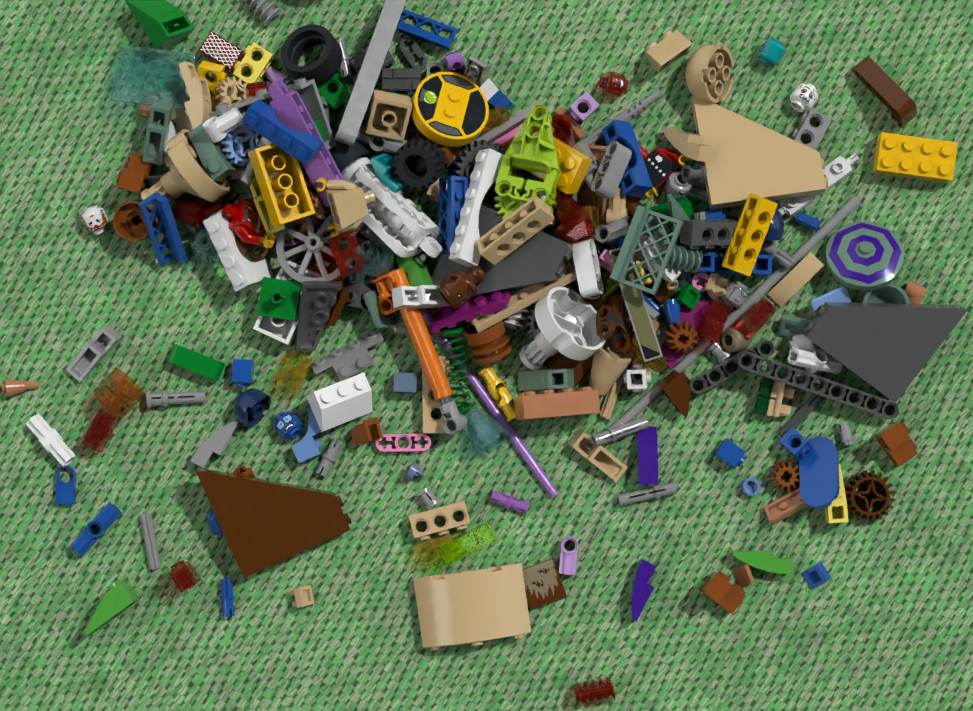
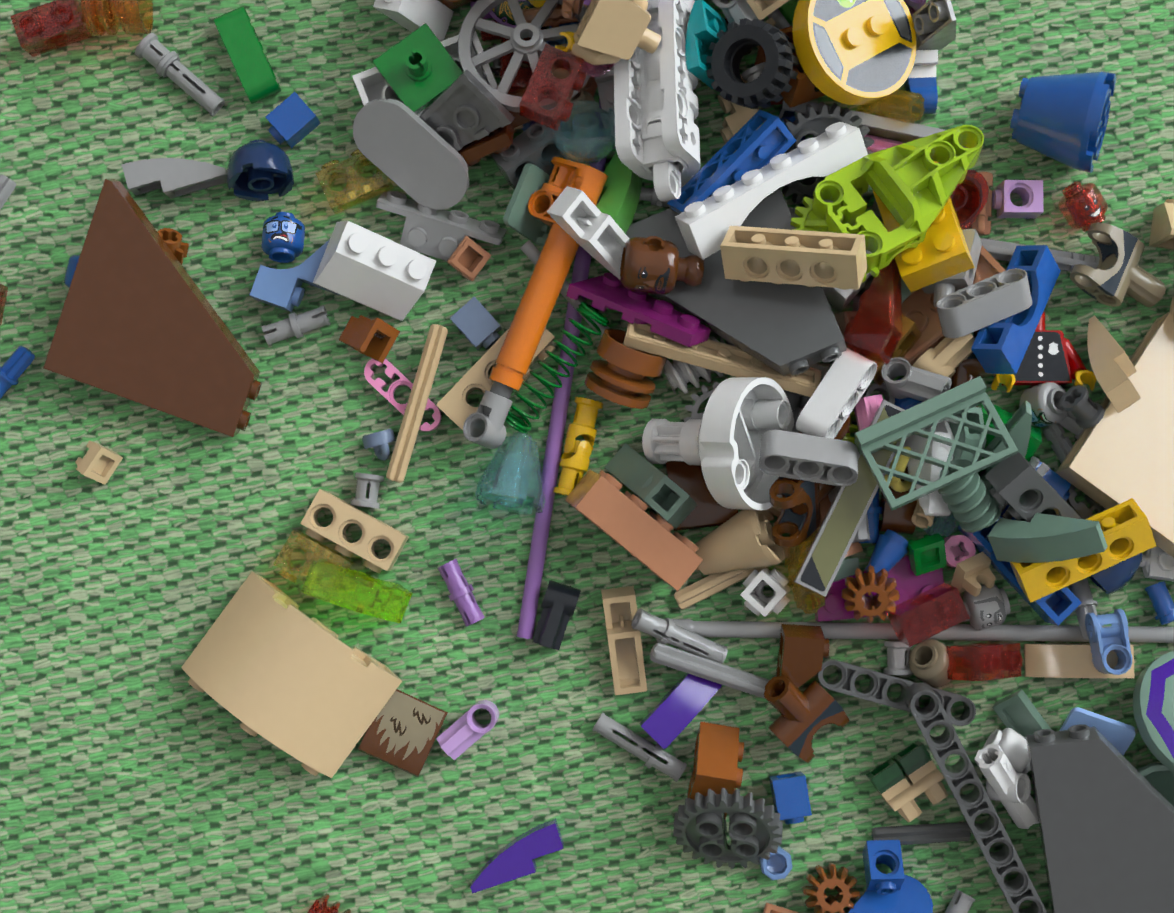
camera: 35 degrees right, 0 degrees up
(310, 337) = (411, 153): none -> light grey tile
(376, 358) = (468, 258): none -> nougat slope
(413, 440) = (417, 403): none -> tan axle
(557, 469) = (557, 607): none -> black piece
(570, 55) = (1065, 116): none -> blue cone
(600, 305) = (809, 458): none -> light grey beam
(646, 432) = (708, 669): none -> light grey axle
(654, 99) = (1117, 269): none -> dark tan connector
(688, 473) = (716, 760): none -> dark orange brick
(701, 414) = (801, 714): none -> reddish brown connector
(726, 481) = (752, 828): none -> dark grey gear
(729, 245) = (1046, 539): none -> sand green slope
(797, 259) = (1109, 639): none -> medium blue piece

